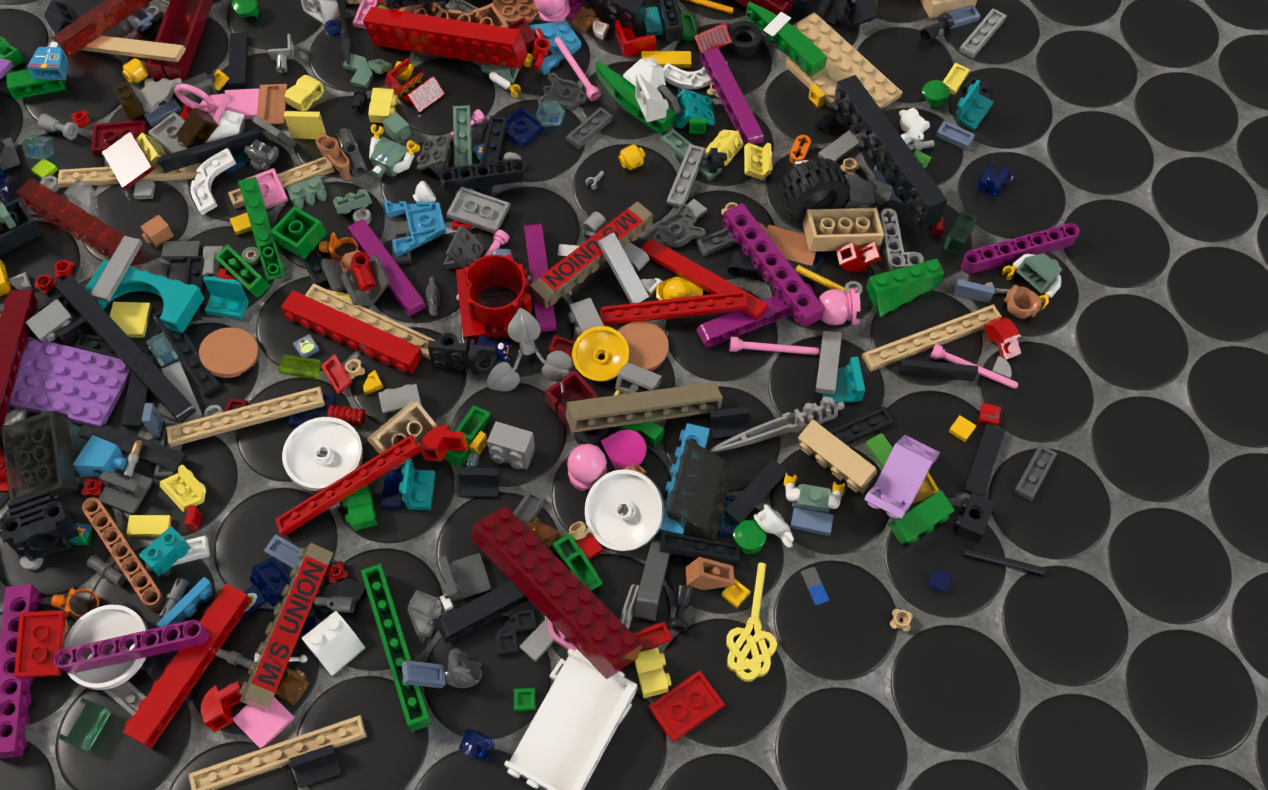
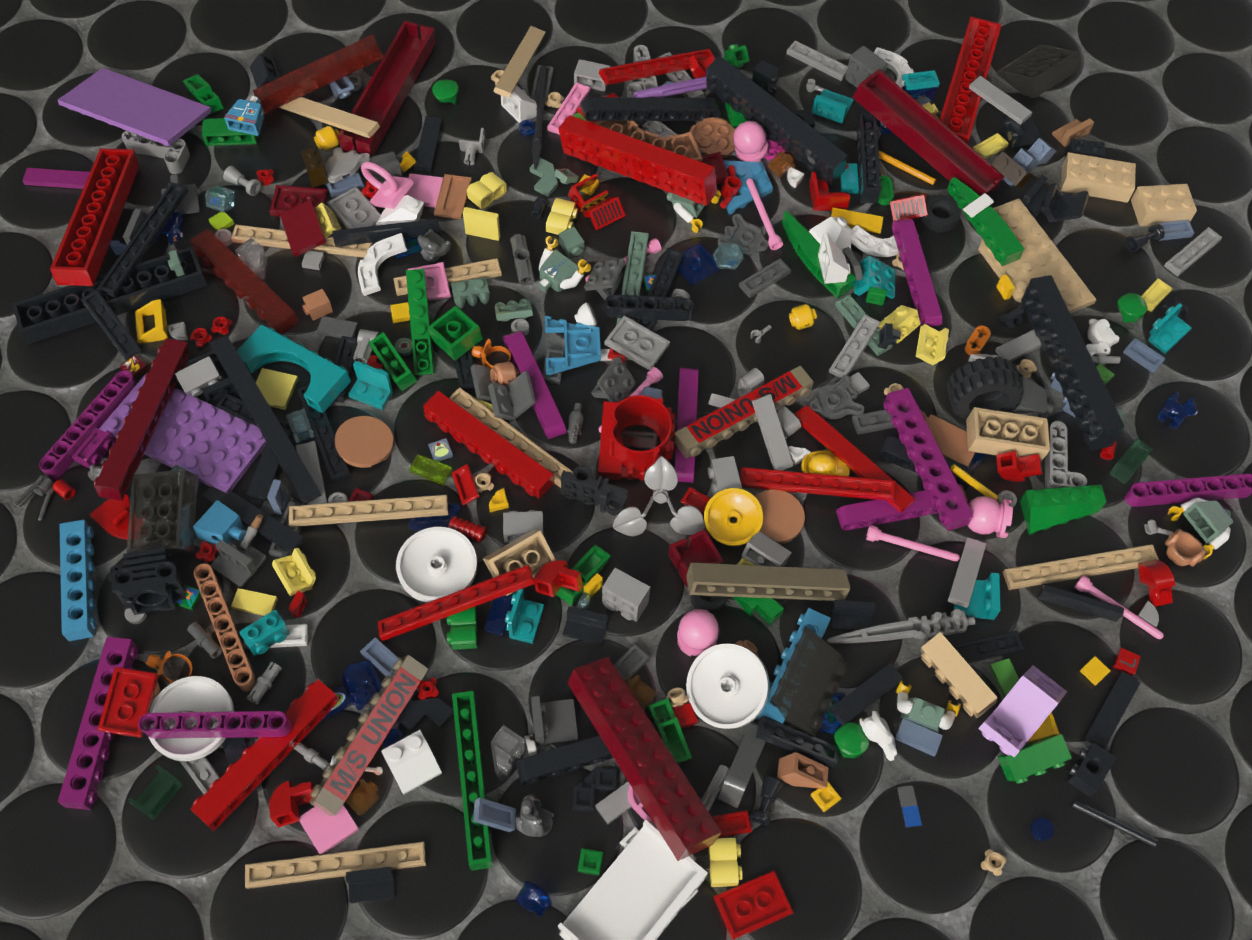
camera: 10 degrees right, 0 degrees up
(116, 269) = (271, 336): light grey tile -> none
(188, 605) = (277, 693): dark azure plate -> none
(196, 128) = (375, 208): dark brown brick -> none
(274, 131) = (449, 224): dark grey tile -> none
(331, 150) = (502, 254): nougat connector -> none
(337, 603) = (422, 722): dark grey piece -> none
(362, 272) = (510, 386): red piece -> none
(502, 348) = (635, 491): clear blue animal -> none
(625, 448) = (740, 622): dark pink tile -> none
(759, 638) = (842, 849): light yellow piece -> none
(974, 291) = (1134, 526): sand blue tile -> none
(1035, 472) = (1164, 734): dark grey tile -> none

